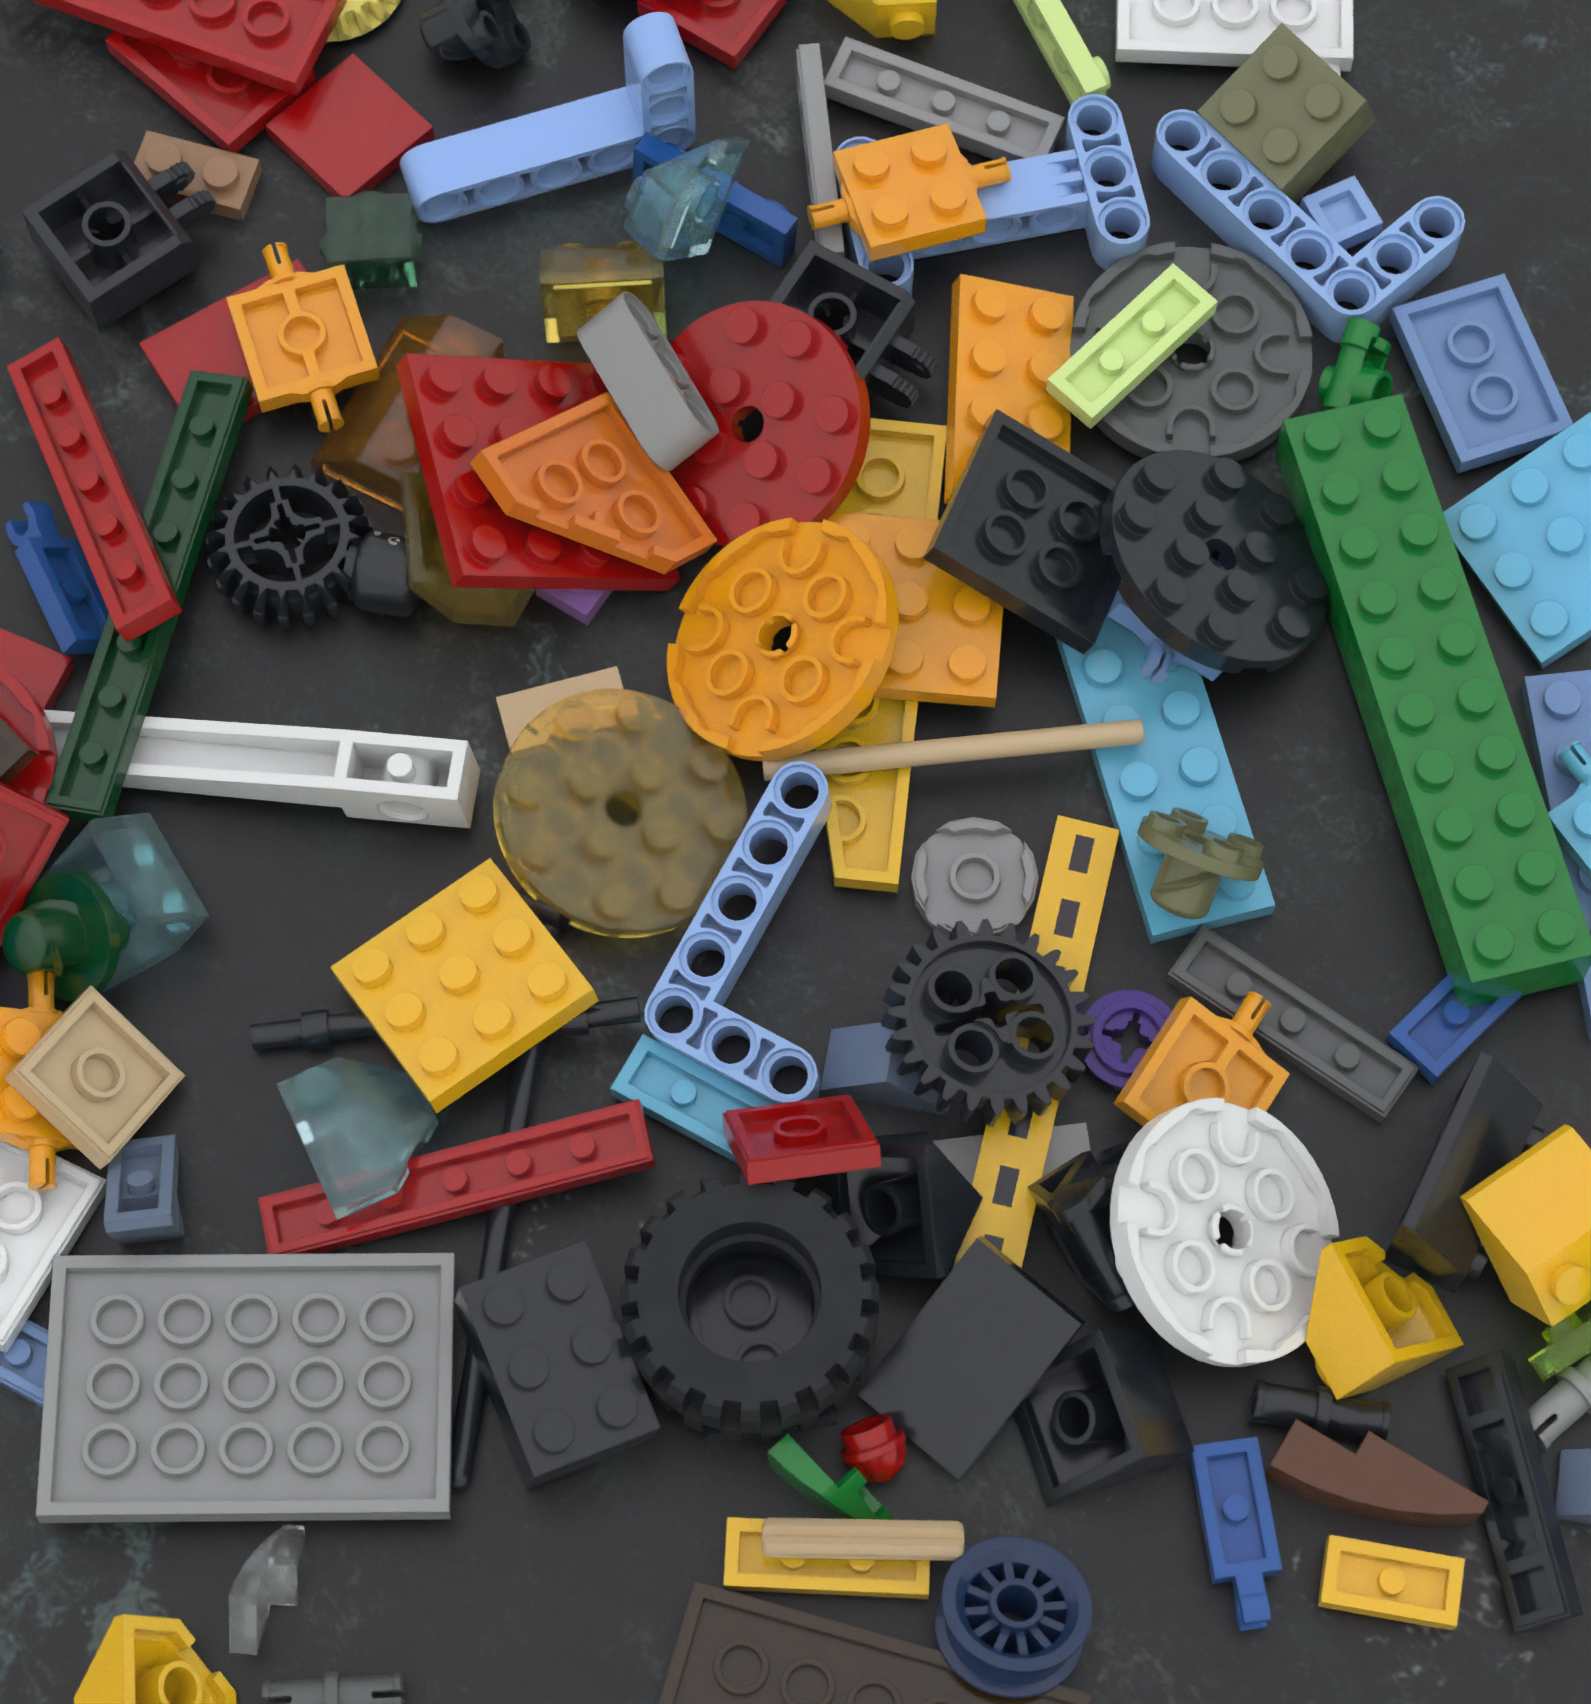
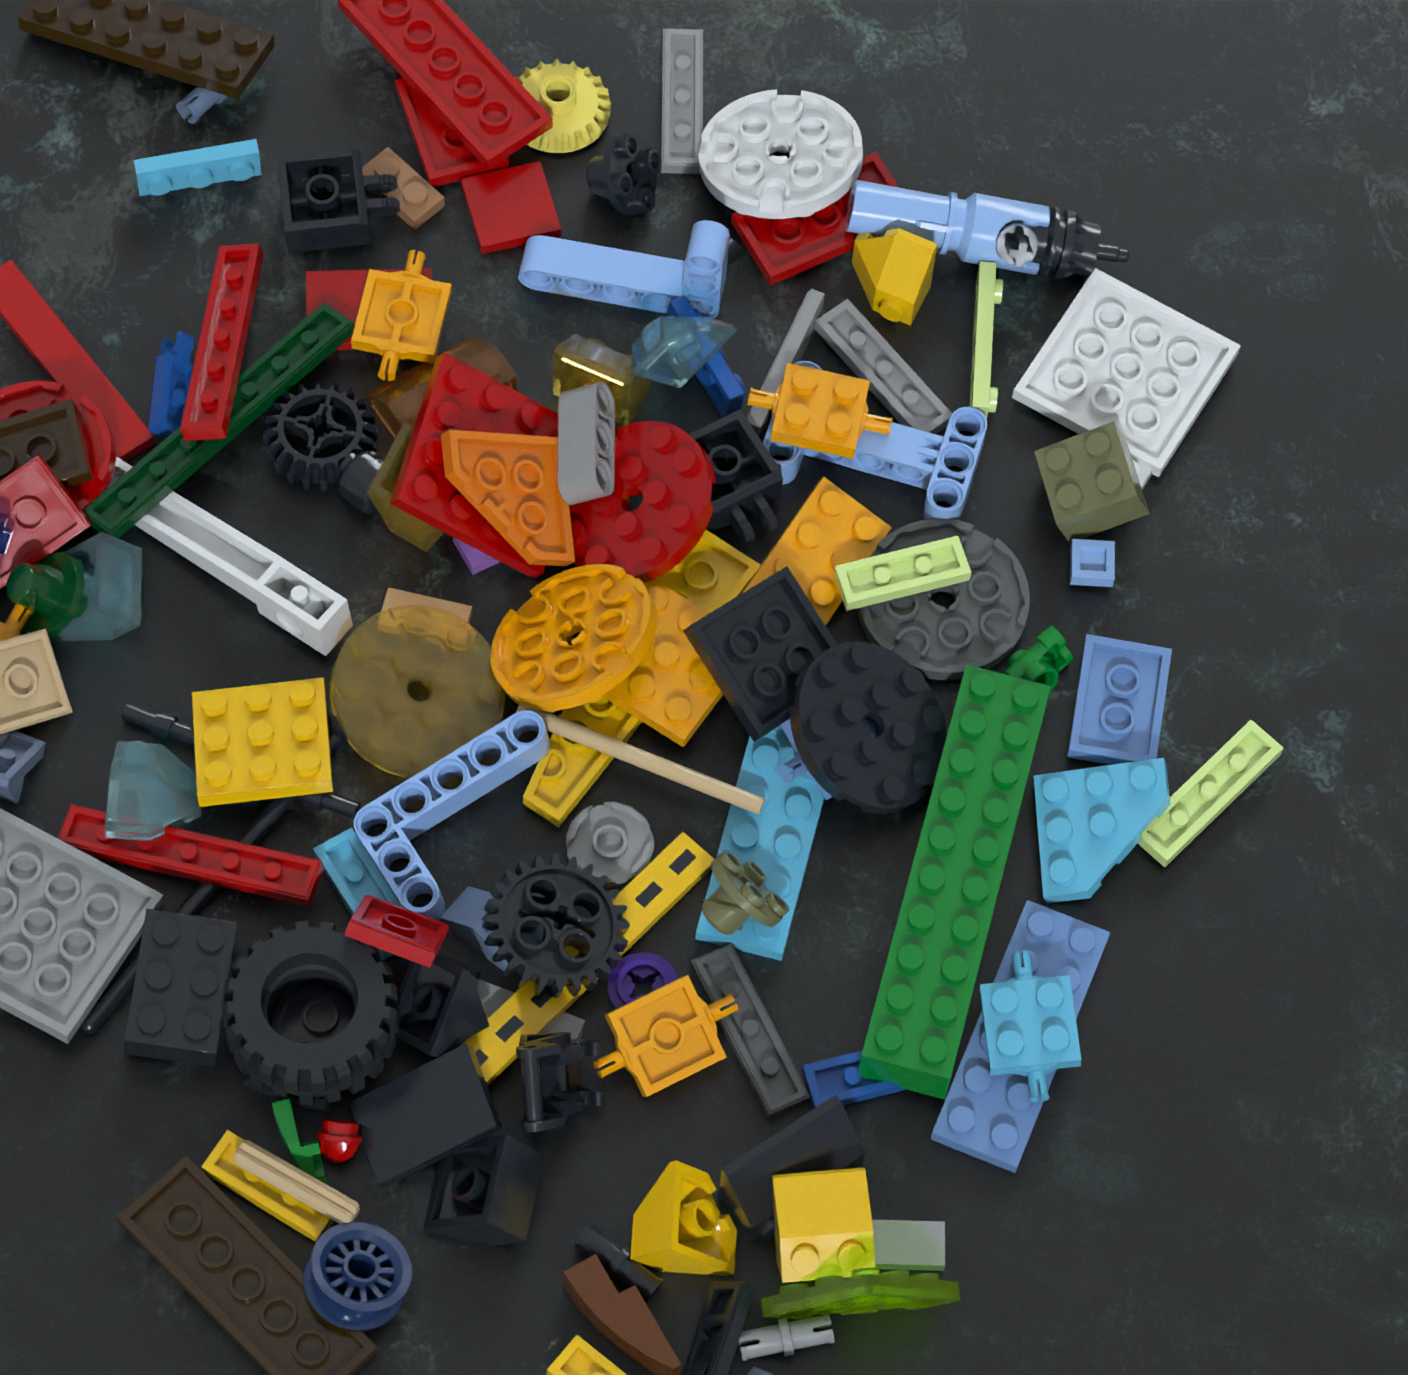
camera: 25 degrees right, 5 degrees down
(373, 239) = (481, 279): clear green head -> none
(1164, 1224) = (583, 1095): white plate -> none
(1237, 1524) = (527, 1299): blue plate -> none
(1296, 235) = (1052, 563): light blue beam -> none

